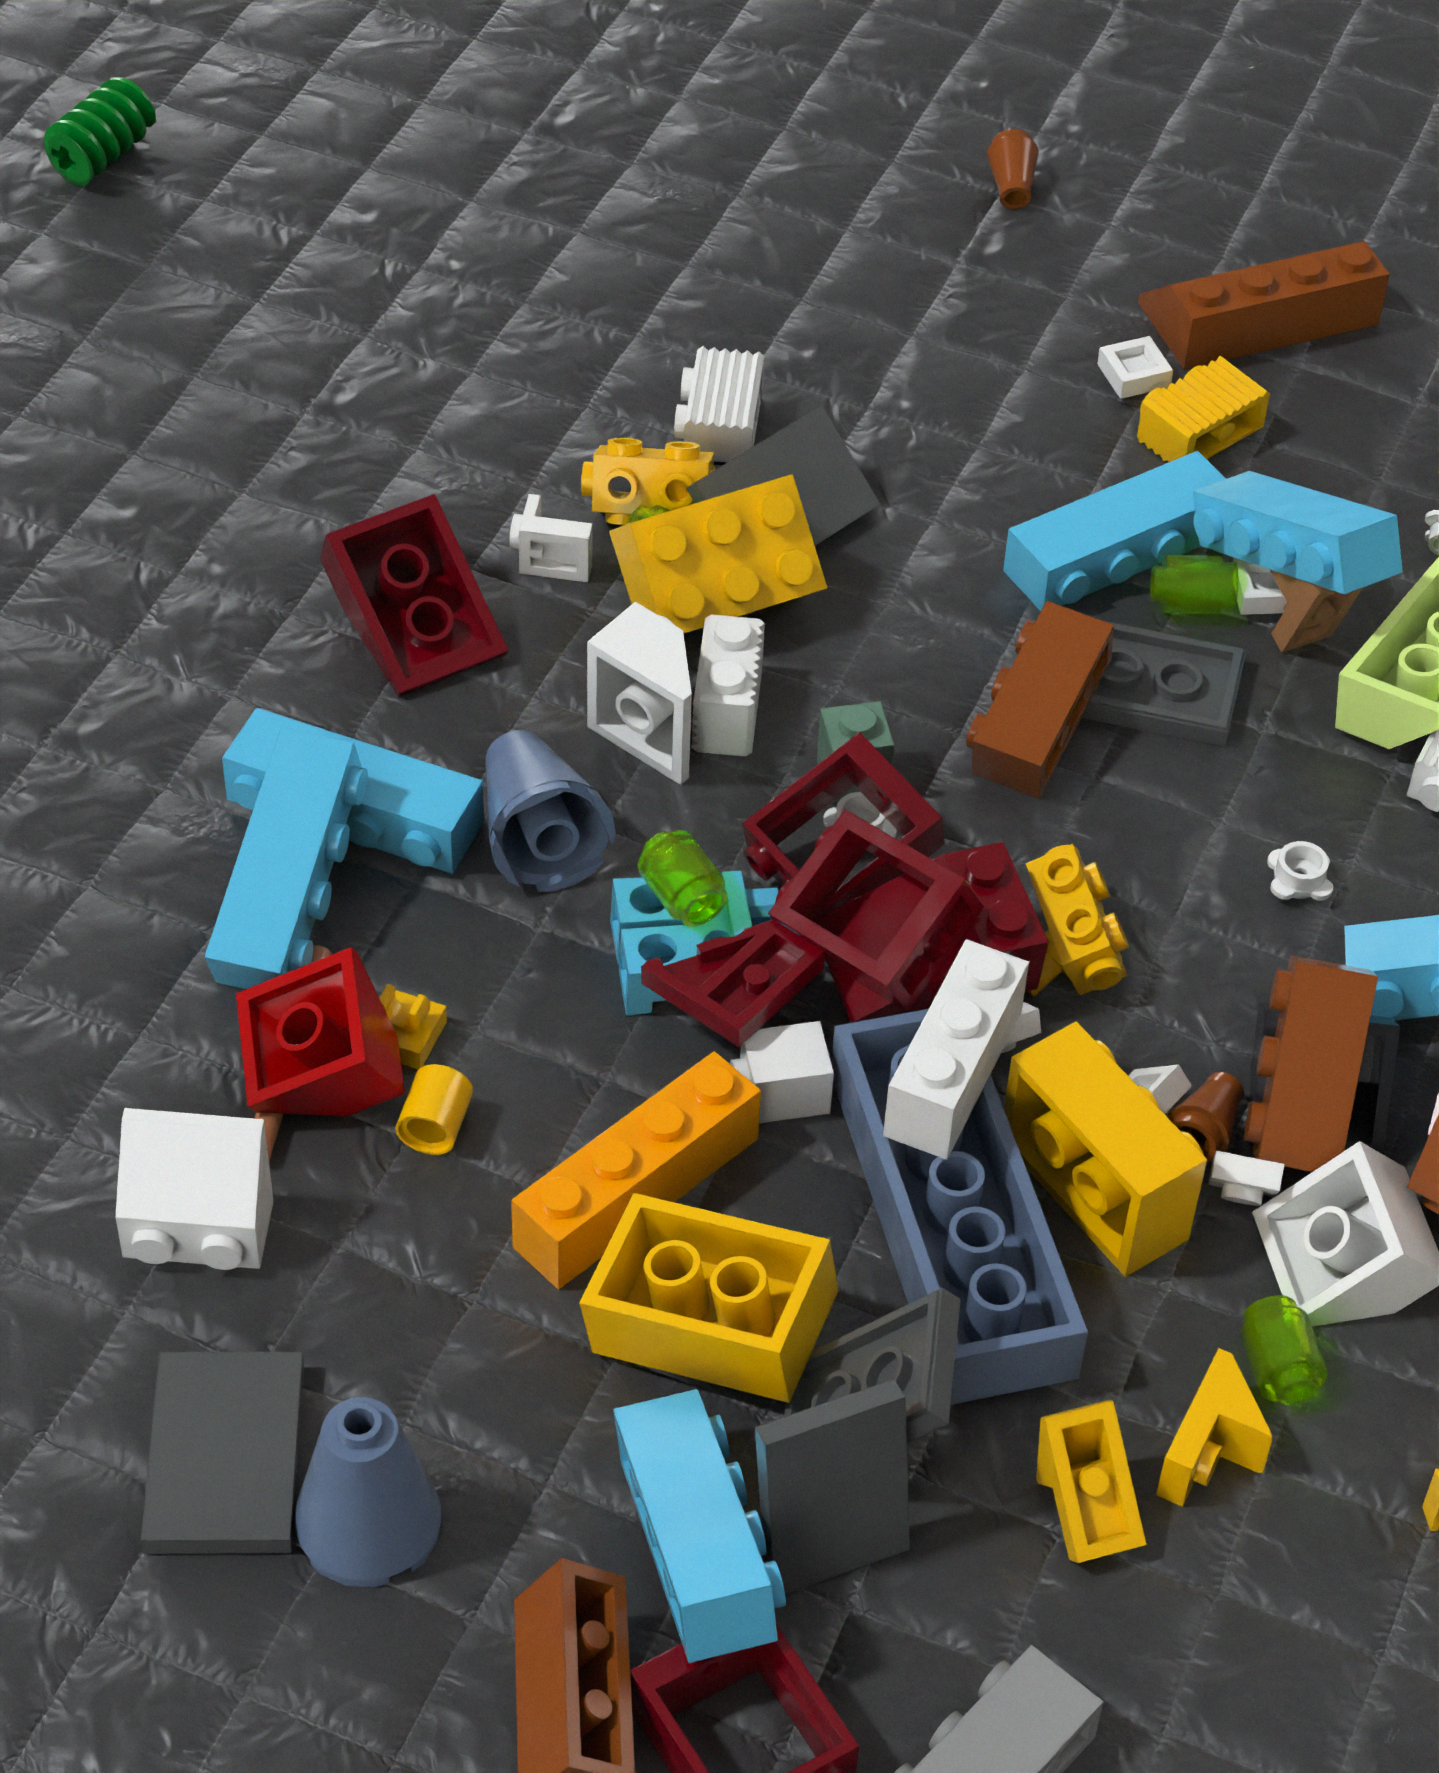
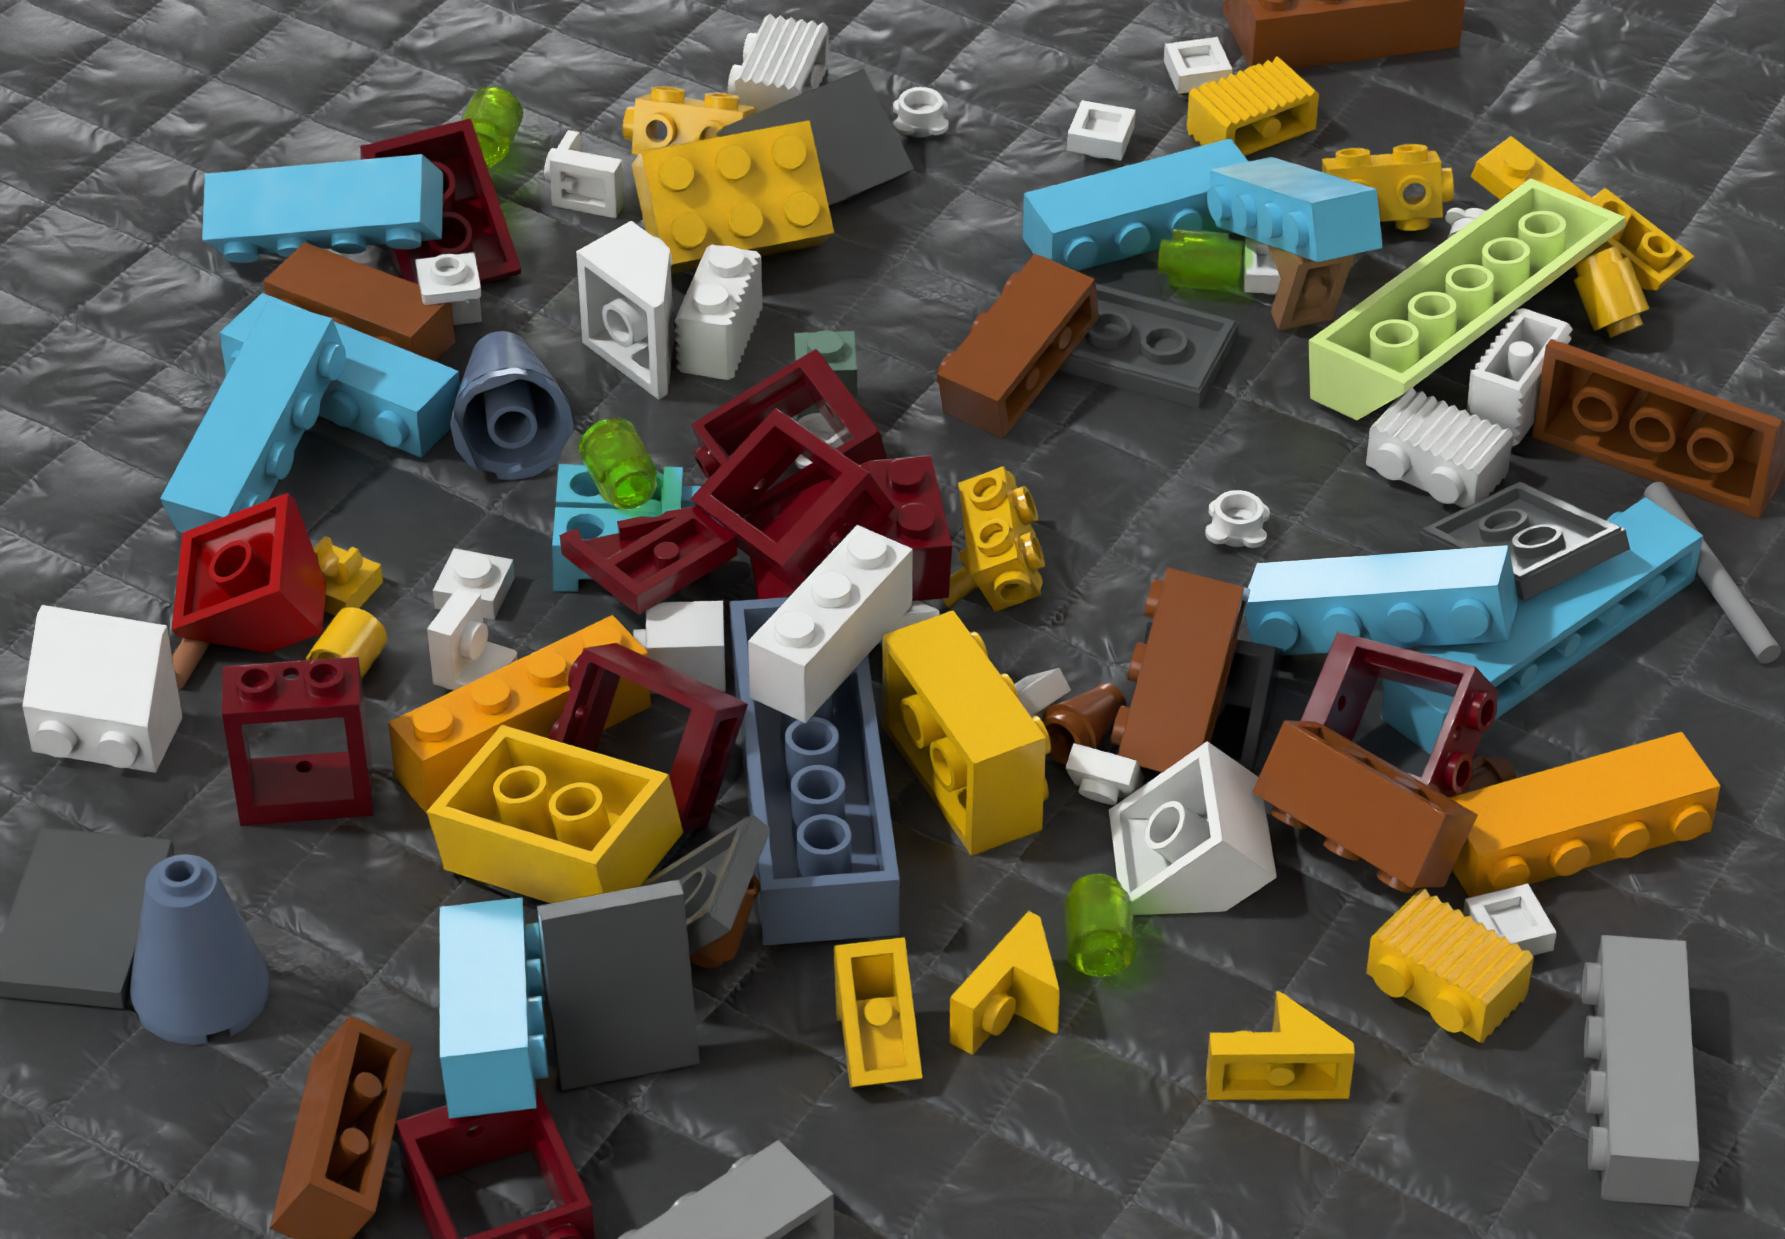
camera: 10 degrees right, 5 degrees down
(298, 605) = (323, 205): none -> medium azure brick
(360, 704) = (363, 300): none -> dark orange brick
(428, 1268) = (298, 785): none -> dark red window
(446, 684) = (452, 280): none -> white bracket
(447, 478) = (496, 120): none -> clear neon green brick
(544, 1017) = (476, 573): none -> white plate
(560, 1104) = (460, 643): none -> white bracket
(853, 1186) = (708, 732): none -> dark red window
(872, 440) = (920, 113): none -> white plate
(1058, 447) = (1101, 130): none -> white plate
(1367, 478) = (1391, 176): none -> yellow brick

